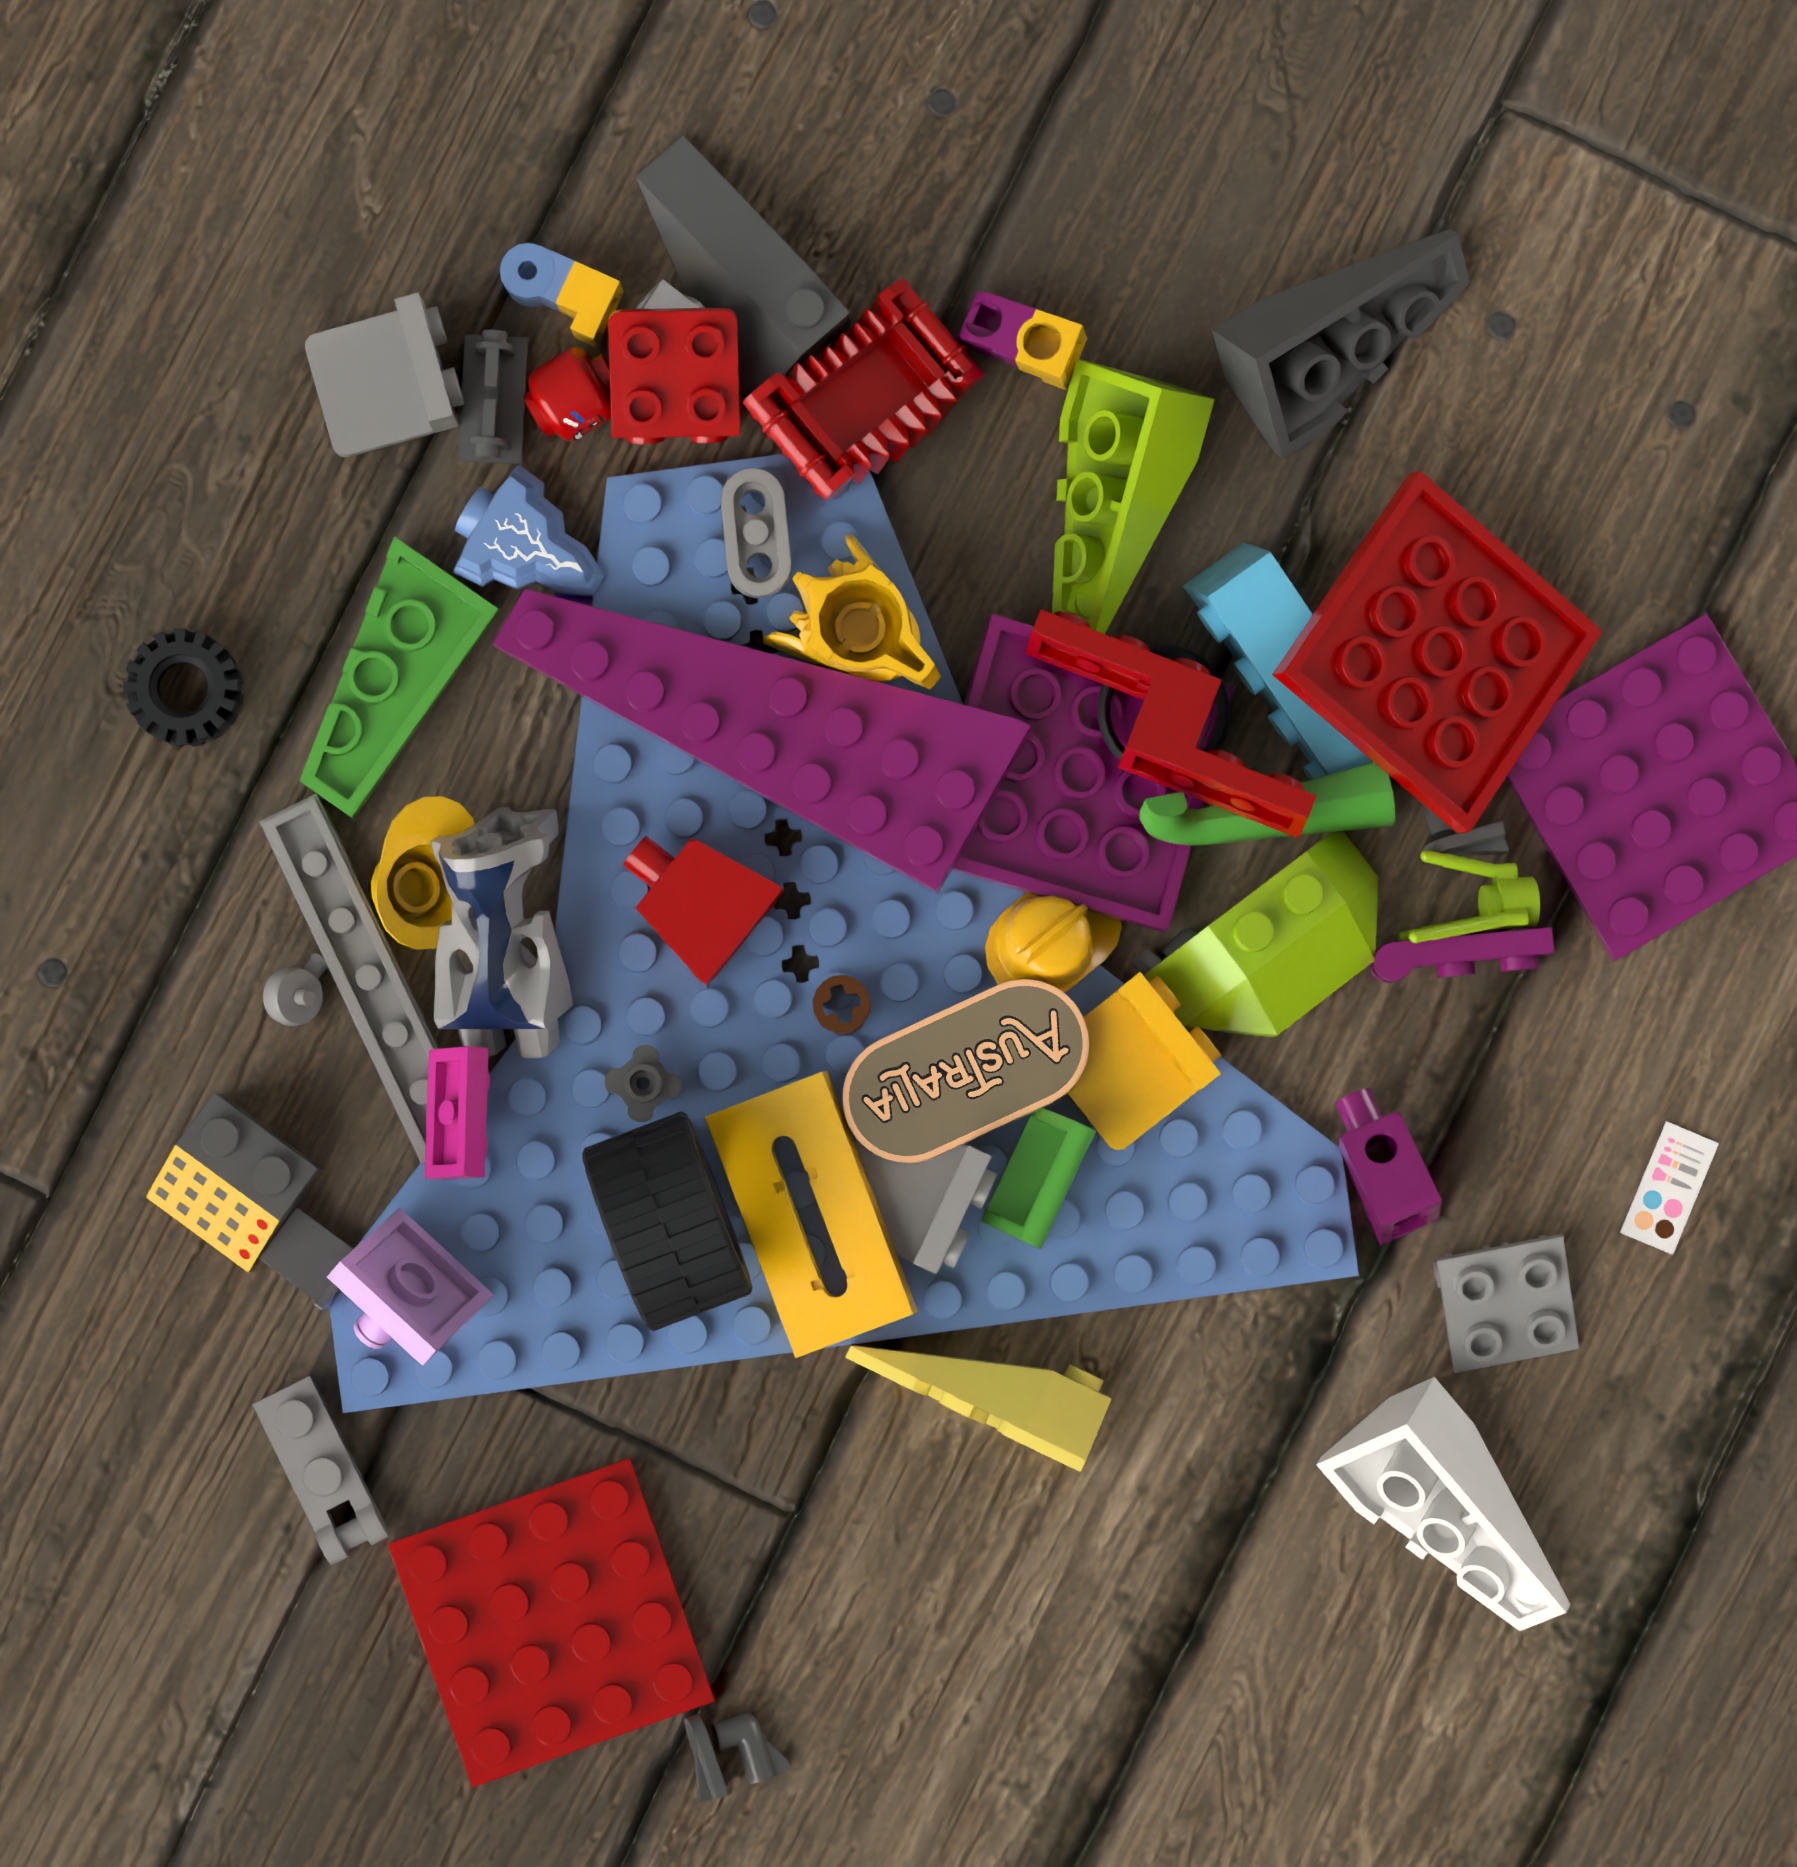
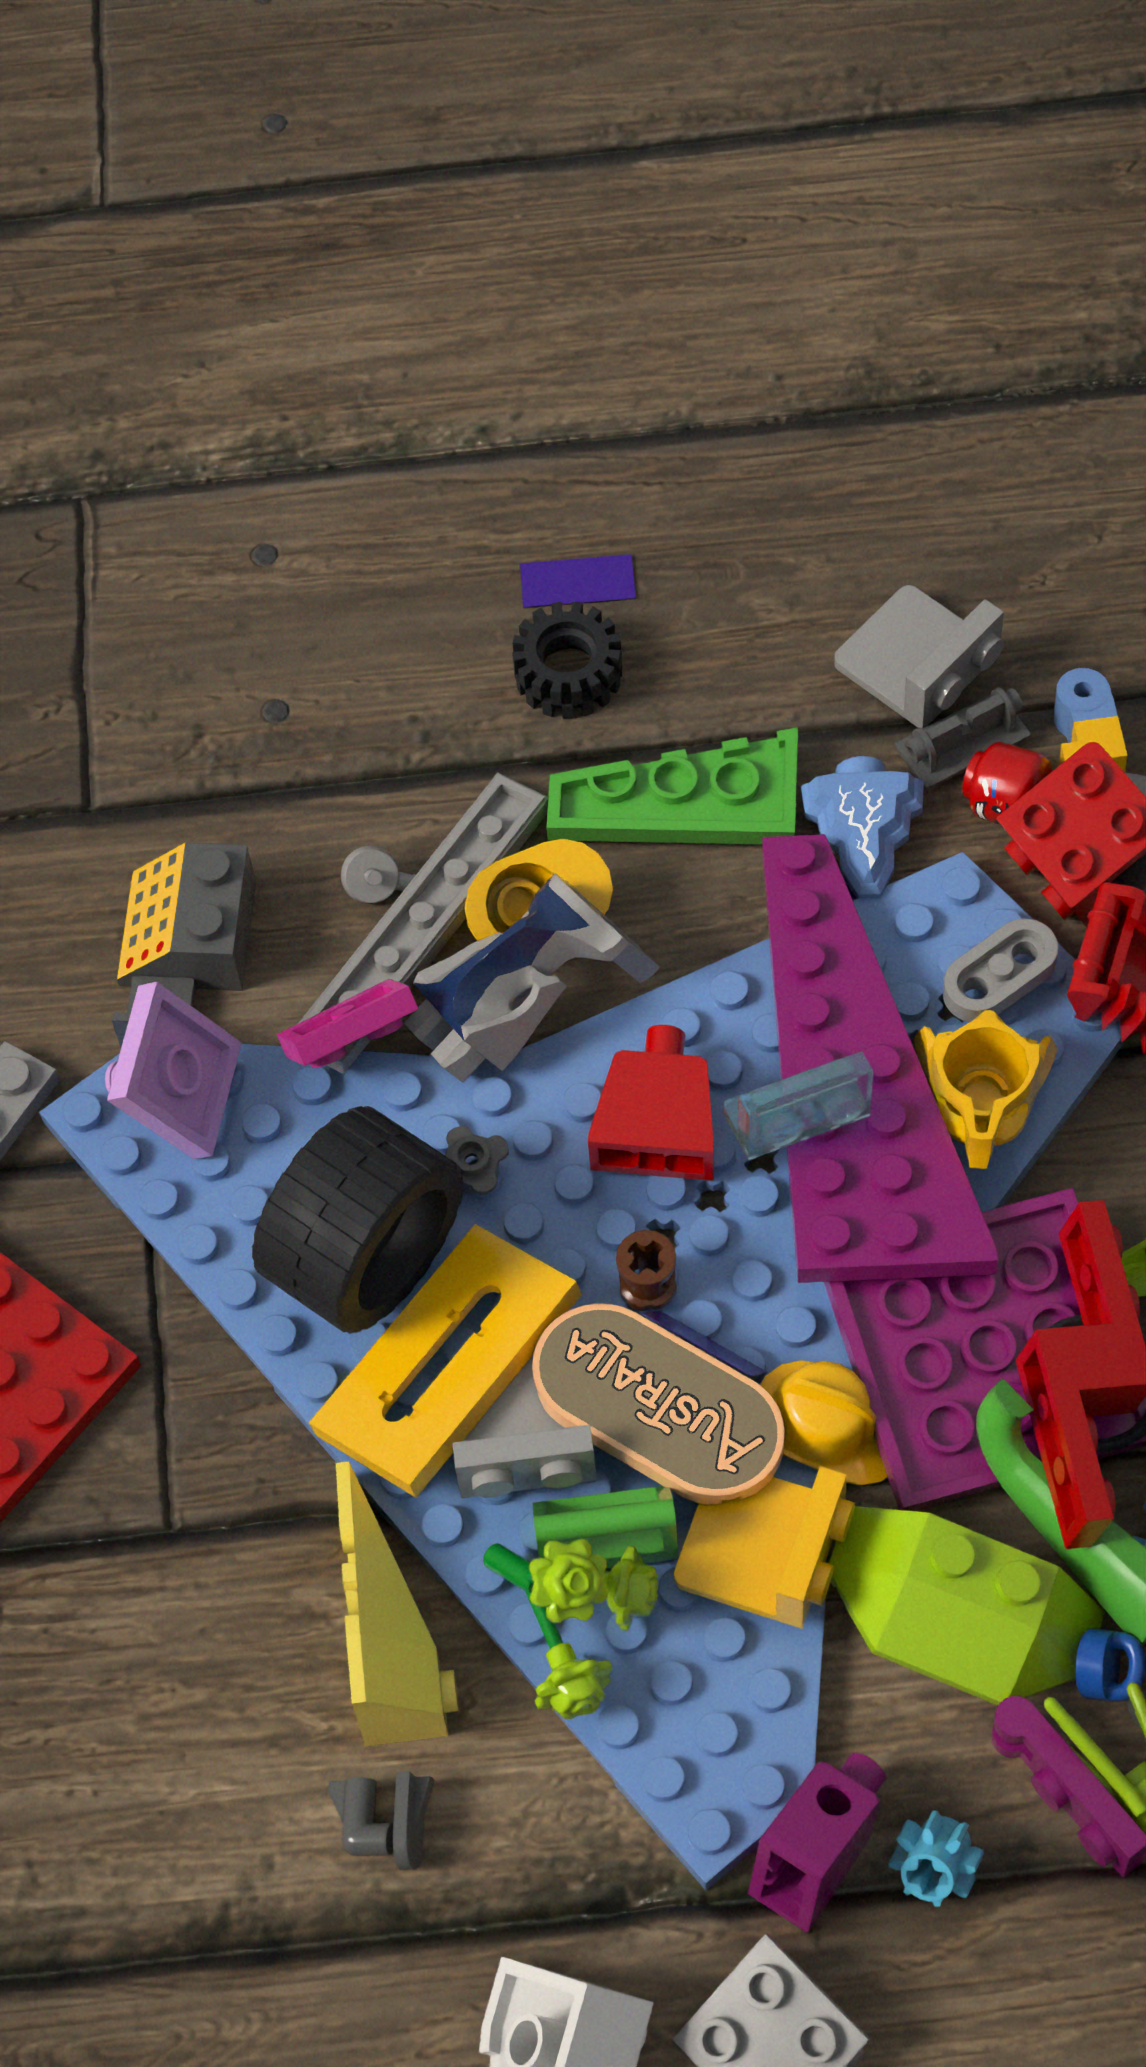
camera: 65 degrees right, 25 degrees down
(93, 620) = (577, 580): none -> dark purple sticker
(798, 799) = (801, 1105): none -> clear light blue bracket
(933, 998) = (705, 1343): none -> dark purple sticker
(1099, 1248) = (565, 1588): none -> lime plant
(1126, 1504) = (363, 1837): none -> dark grey piece
(1385, 864) = (1100, 1661): none -> blue tile
(1455, 1091) = (936, 1858): none -> medium azure gear

